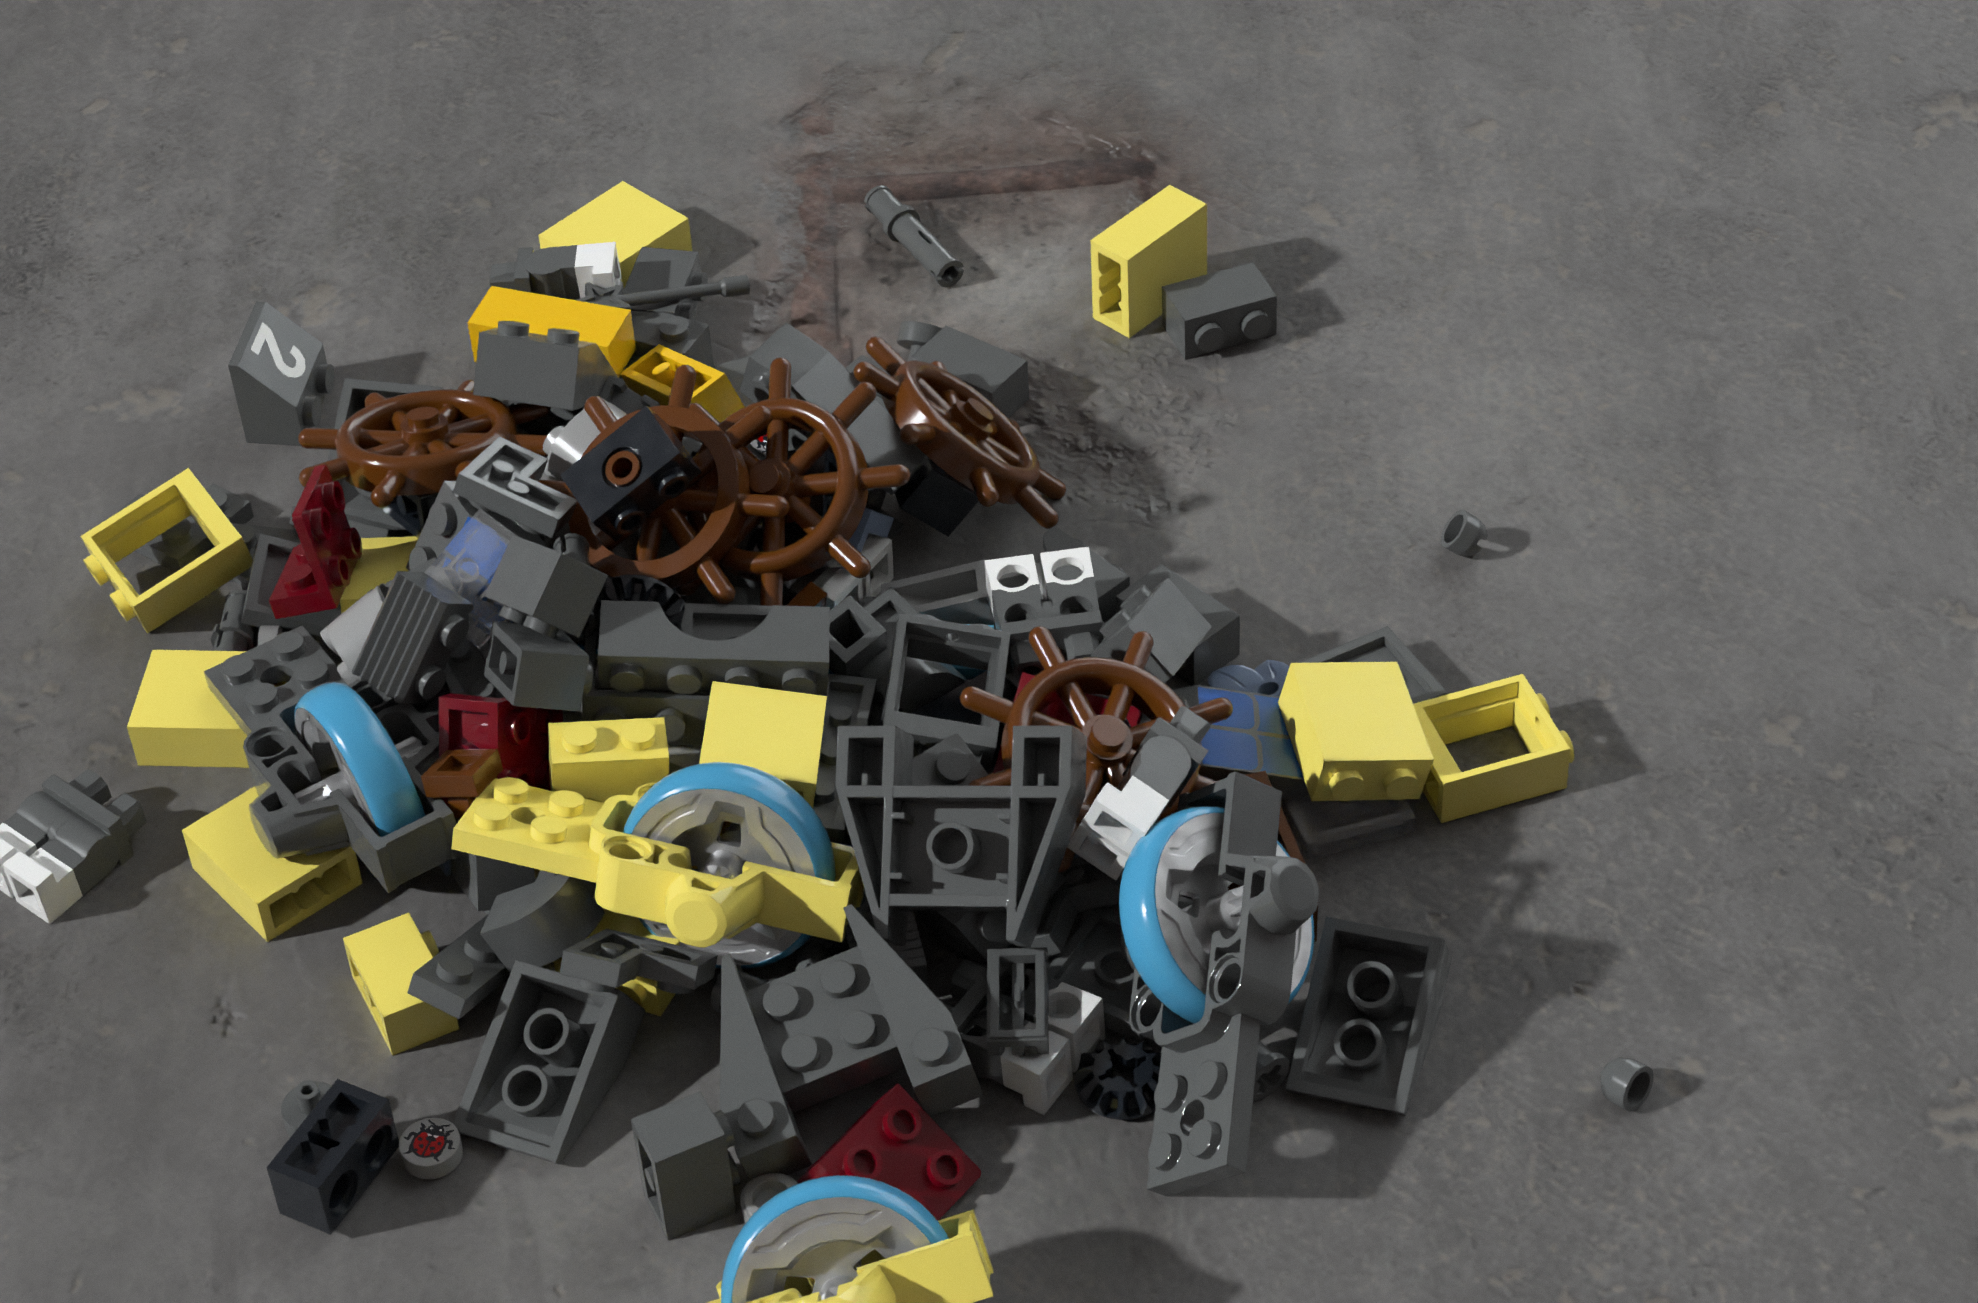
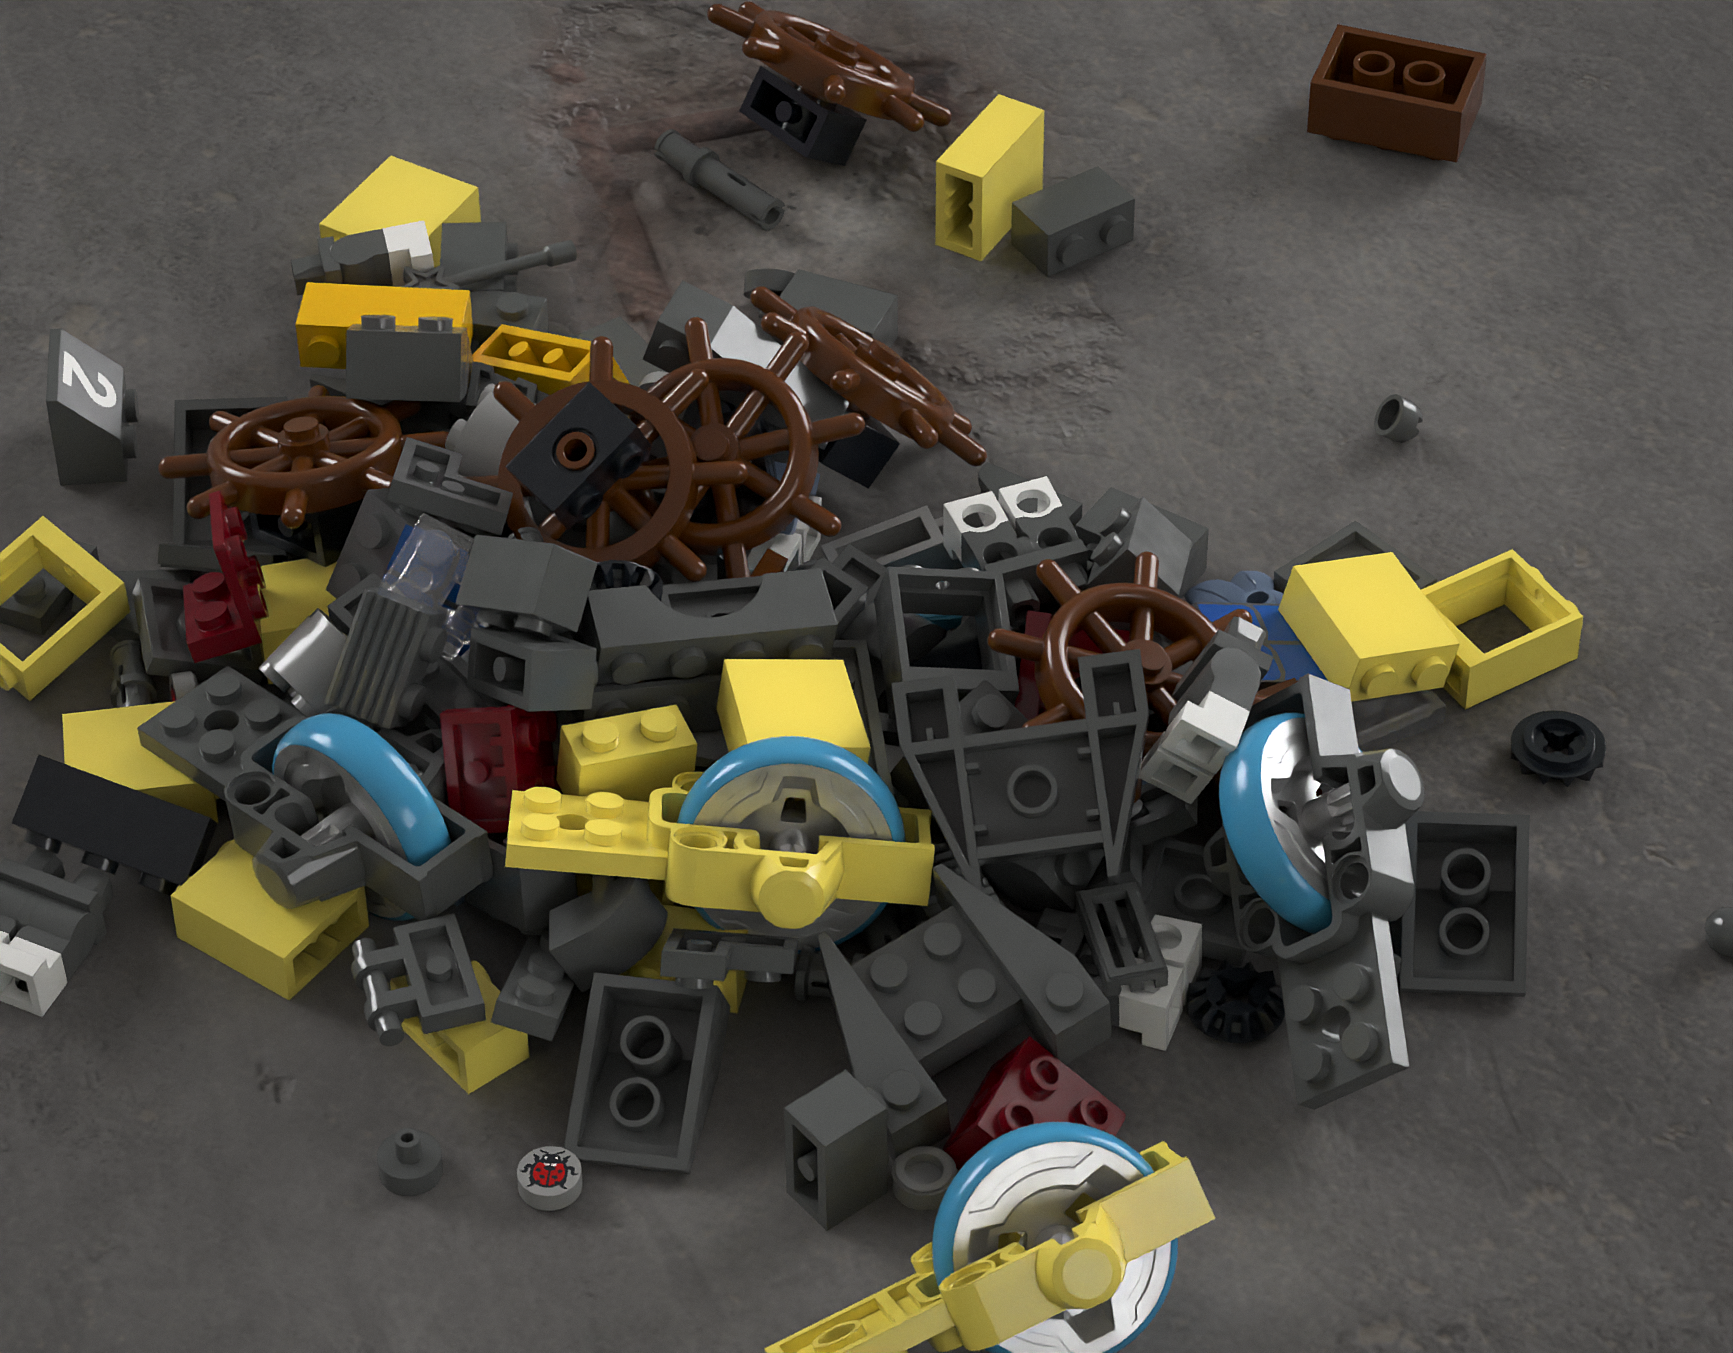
camera: 15 degrees left, 0 degrees up
(154, 756) = (112, 825): none -> black brick
(333, 1156) = (461, 1198): black brick -> none
(378, 942) = (438, 976): none -> dark grey plate
(461, 776) = (486, 793): reddish brown tile -> none
(1023, 156) = (816, 82): none -> reddish brown brick
(1522, 857) = (1558, 731): none -> black gear
(1559, 225) = (1396, 93): none -> reddish brown brick

